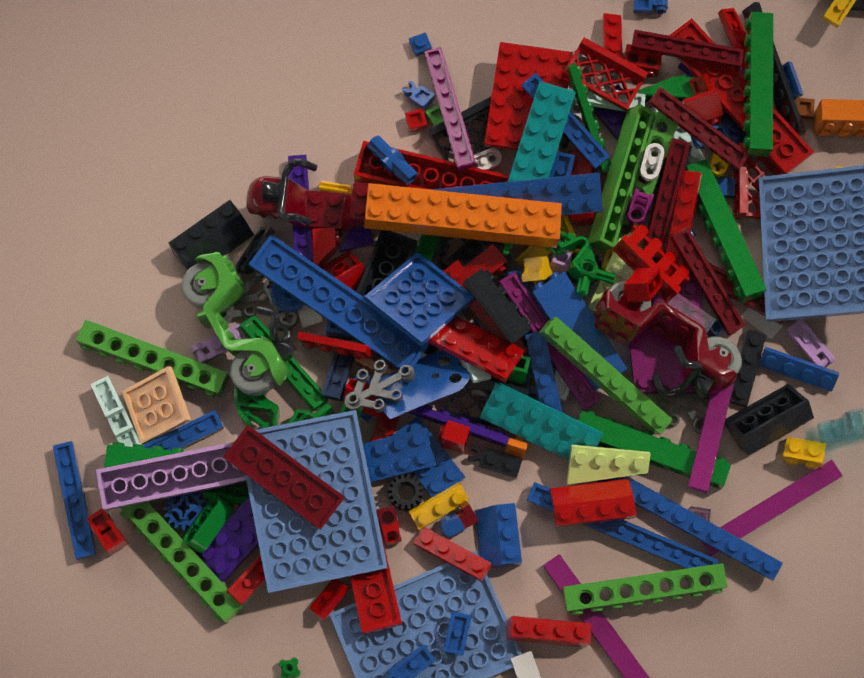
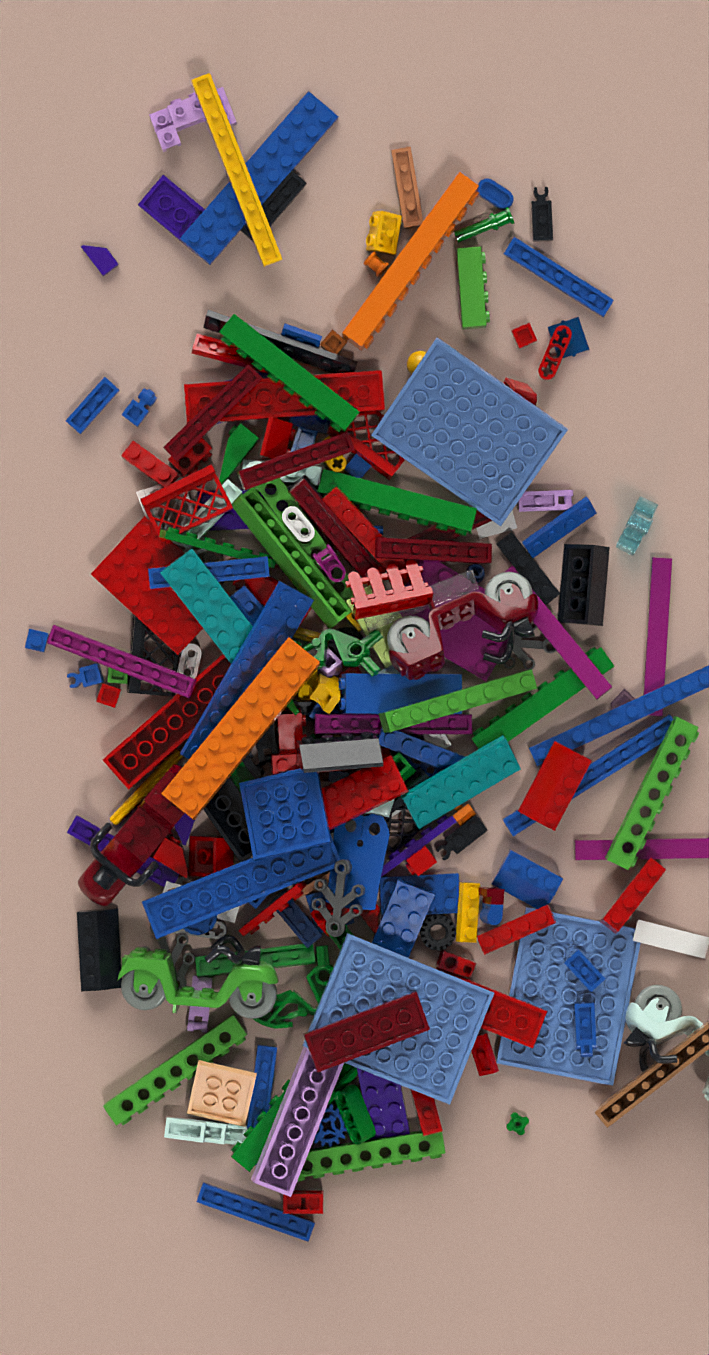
camera: 60 degrees left, 15 degrees up
(257, 242) = (136, 919): black plate -> none
(392, 160) = (140, 748): blue piece -> none
(601, 463) = (529, 752): yellowish green wing -> none
(643, 284) = (407, 619): red brick -> none
(700, 84) = (254, 425): red plate -> none
(804, 452) = (631, 576): yellow bracket -> none

